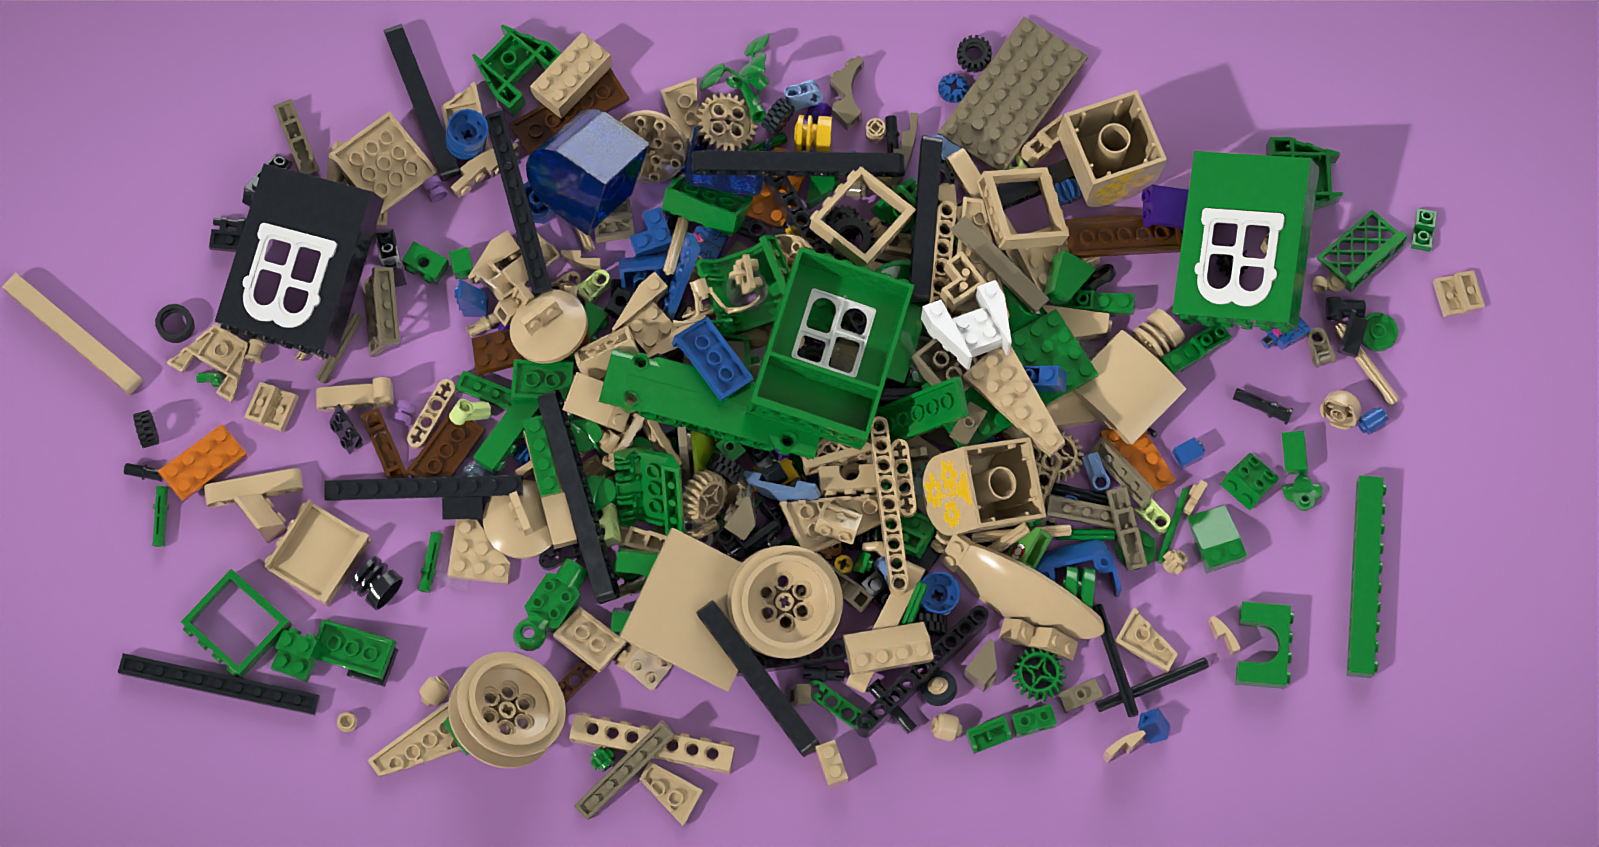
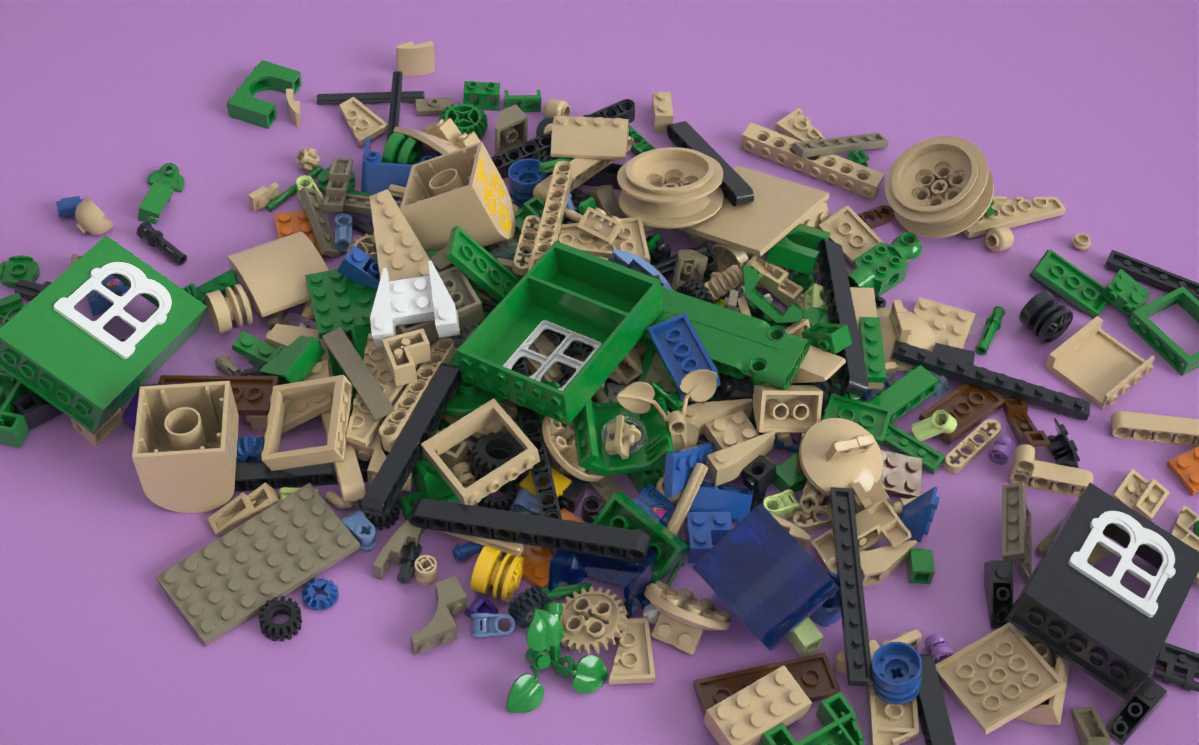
camera: 170 degrees left, 25 degrees down
(262, 516) = (1160, 387): tan slope -> none
(416, 255) = (960, 577): green brick -> none
(584, 437) = (828, 337): none -> green brick
(1132, 282) = (223, 362): none -> dark tan pin
(1154, 726) = (383, 71): blue panel -> none
(1188, 453) = (251, 227): blue brick -> none
(1217, 539) = (261, 163): slope -> none
(1249, 481) = (206, 194): green bracket -> none
(1353, 335) = (46, 264): black panel -> none
(1365, 577) = (149, 114): green brick -> none
(1371, 370) = (46, 248): tan axle -> none

